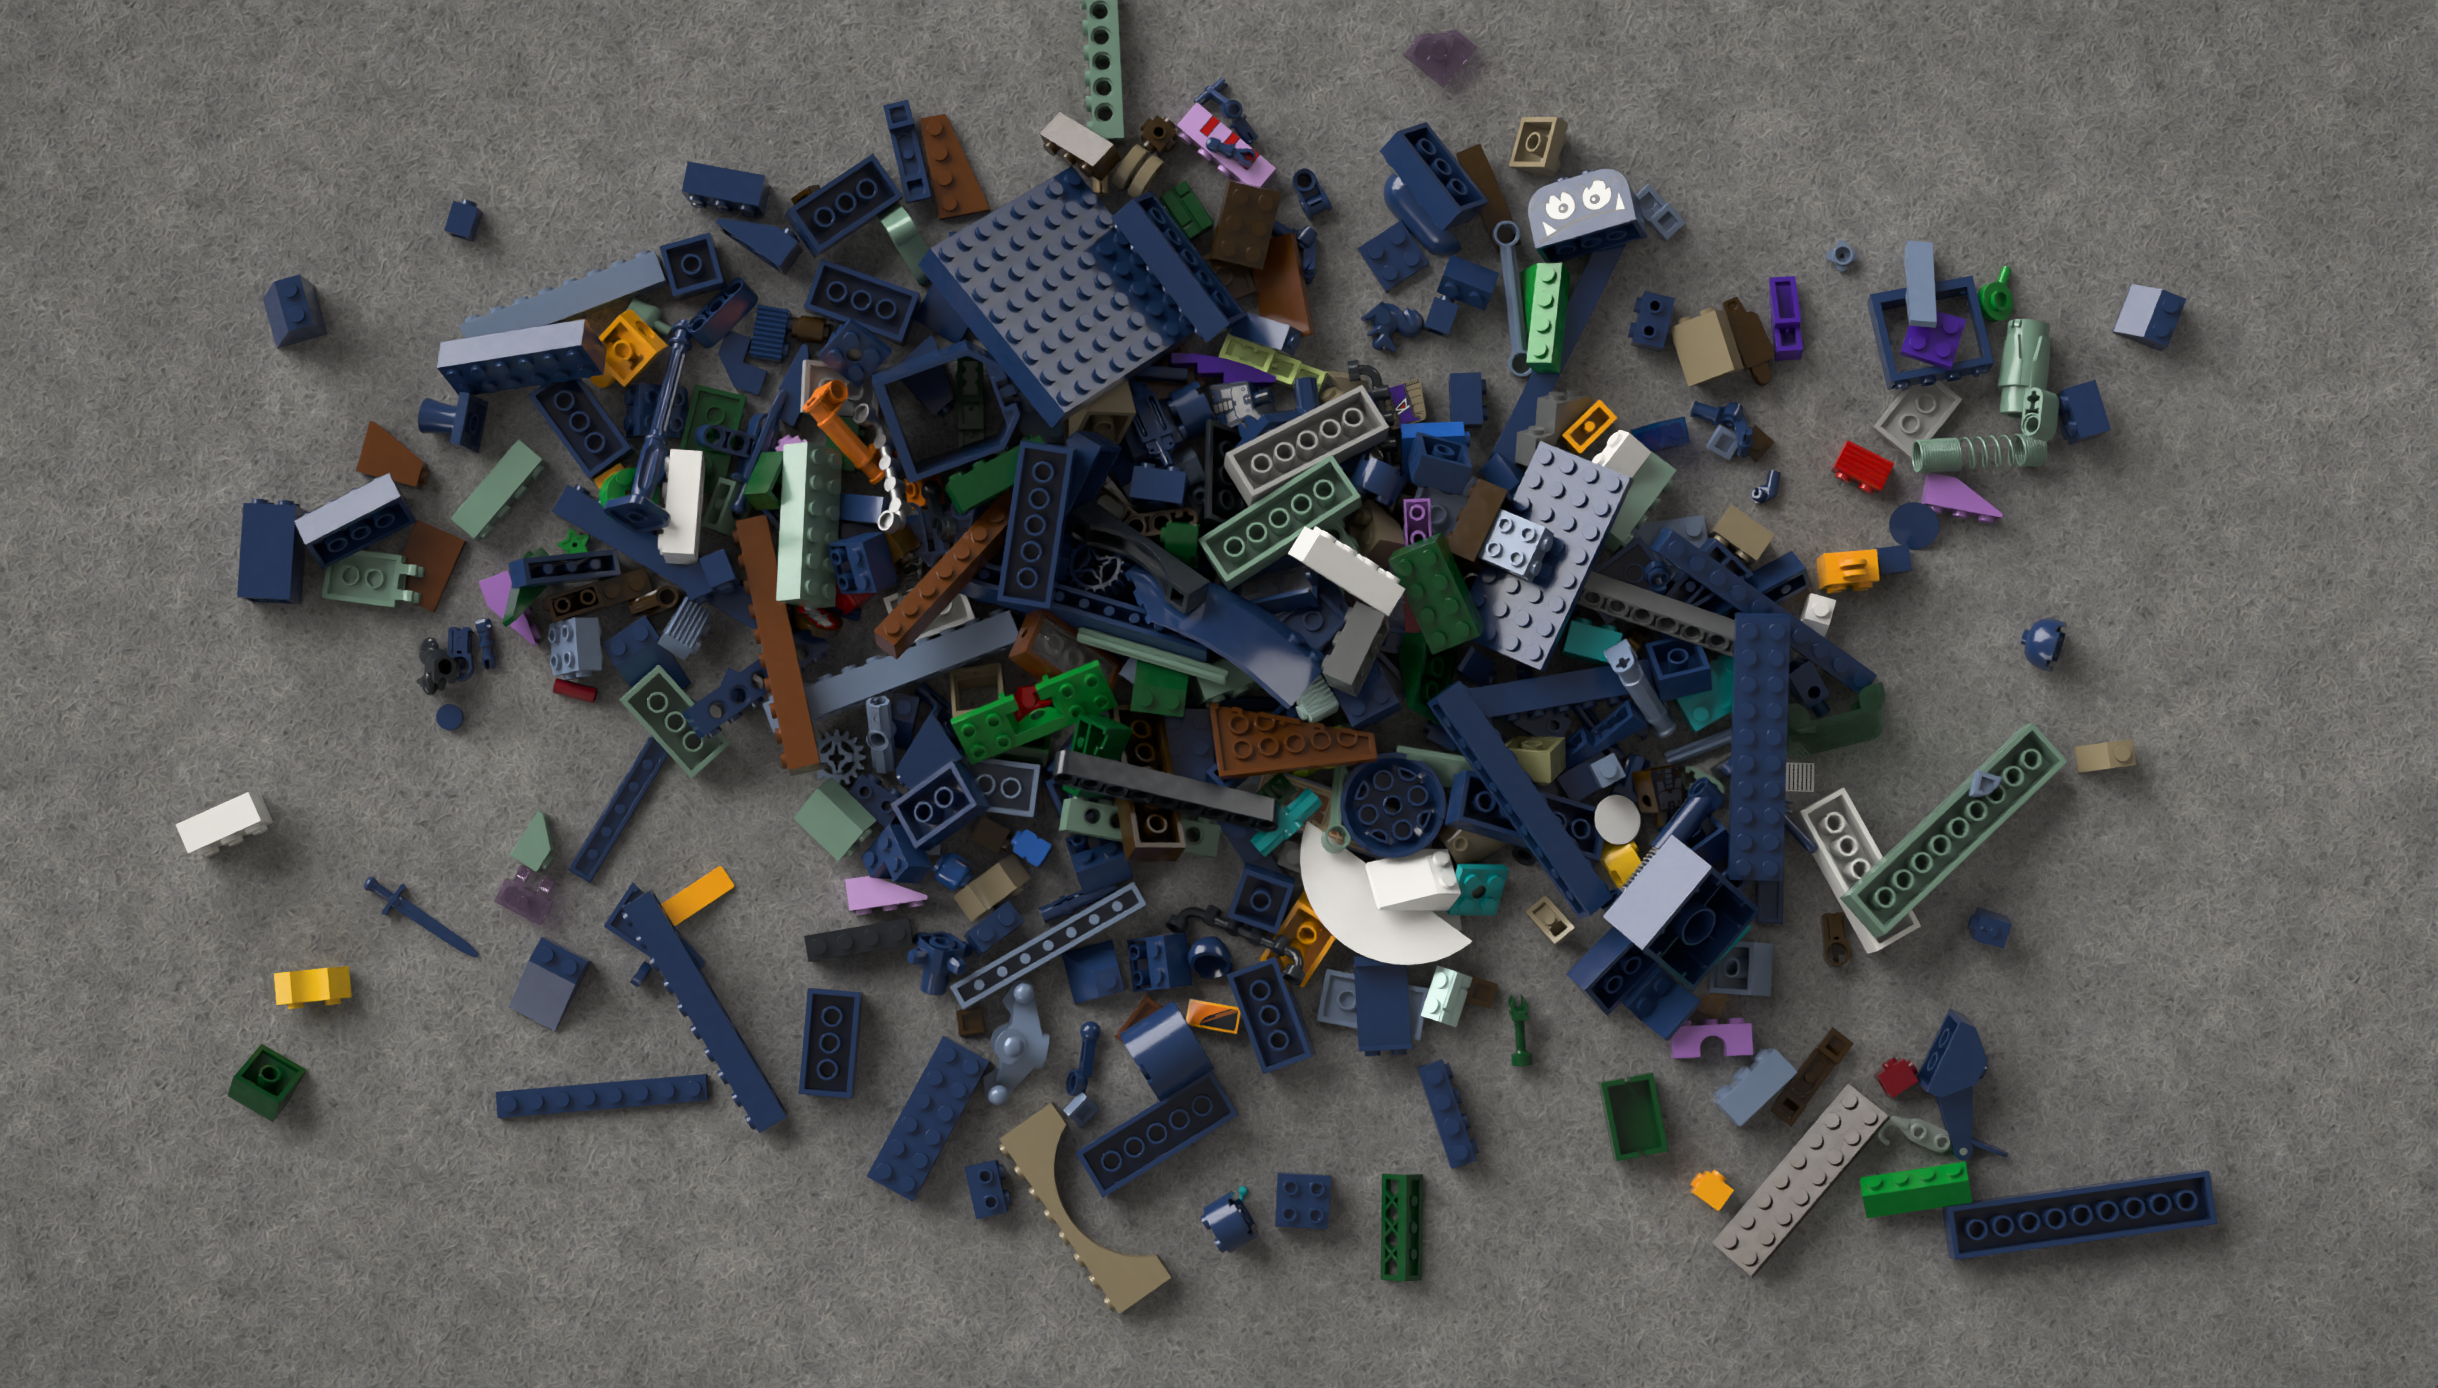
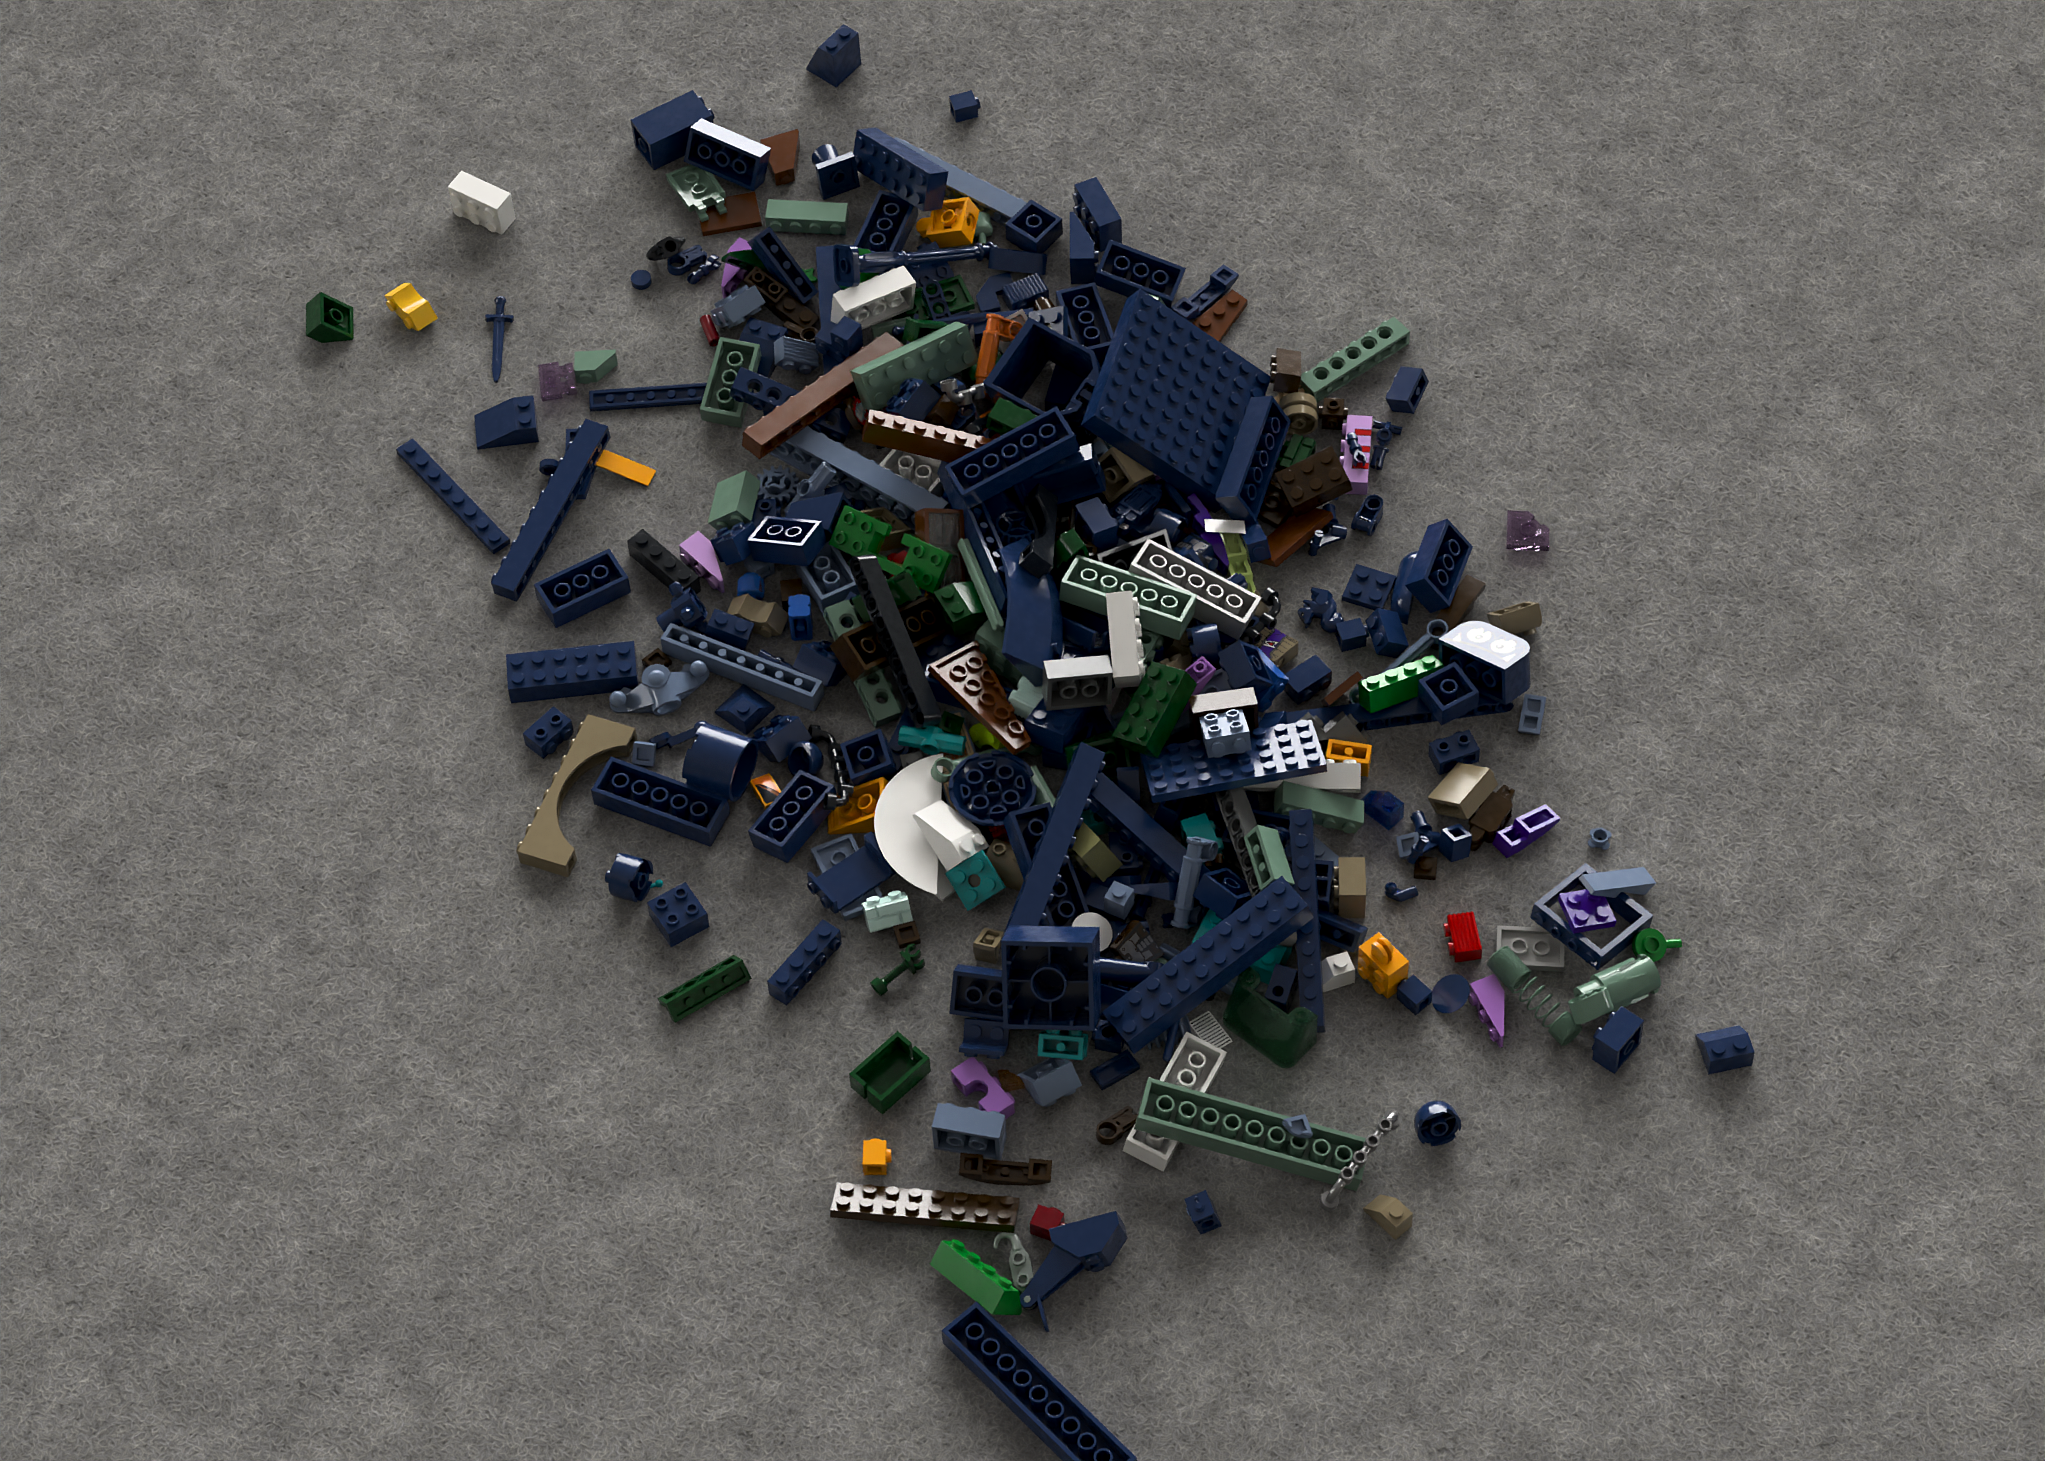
camera: 60 degrees right, 30 degrees down
(1184, 41) = (1407, 390): none -> dark blue brick
(1234, 351) = (1224, 526): none -> white sticker
(1514, 381) = (1341, 689): none -> reddish brown tile
(1597, 283) = (1448, 693): none -> dark blue brick
(1690, 608) = (1267, 856): none -> sand green brick
(1757, 398) = (1455, 843): none -> dark blue brick
(2015, 682) = (1390, 1121): none -> flat silver bar

